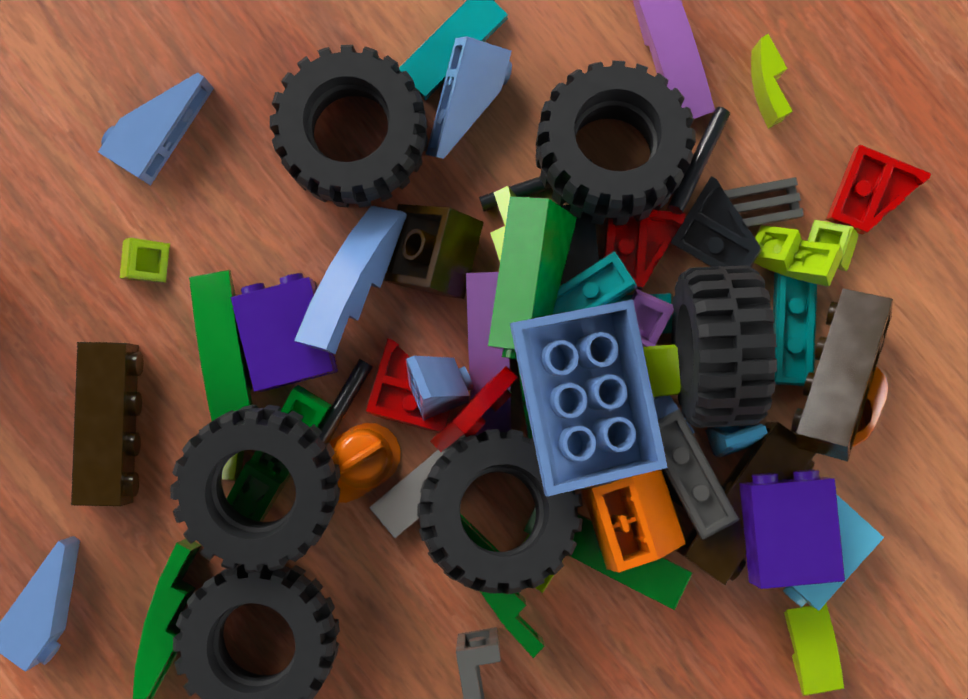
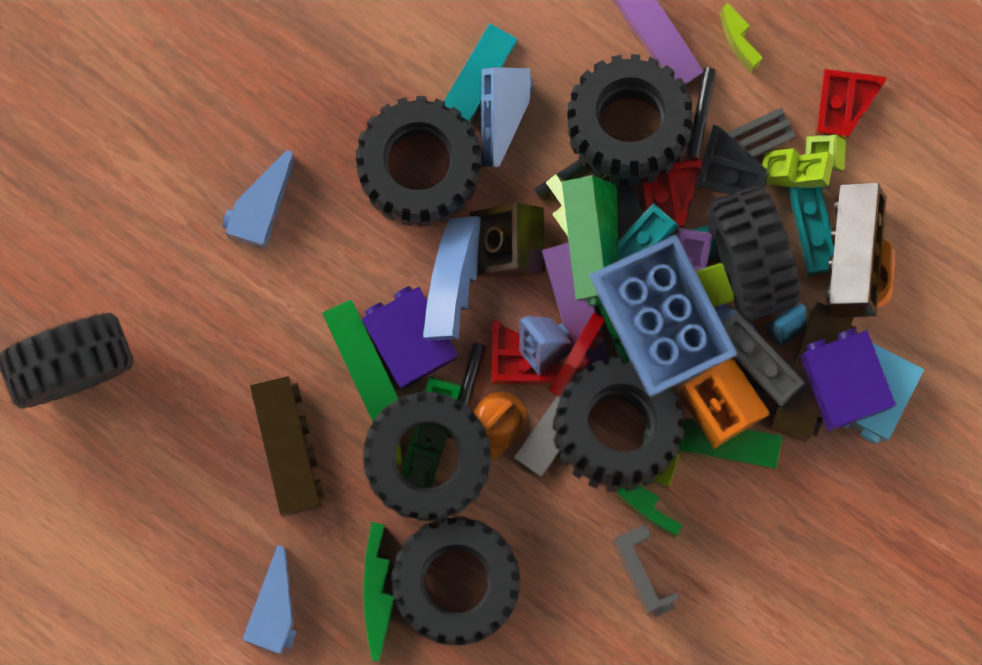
camera: 15 degrees left, 5 degrees down
(144, 260) = (277, 310): lime slope -> none
(815, 650) = (898, 475): lime slope -> none

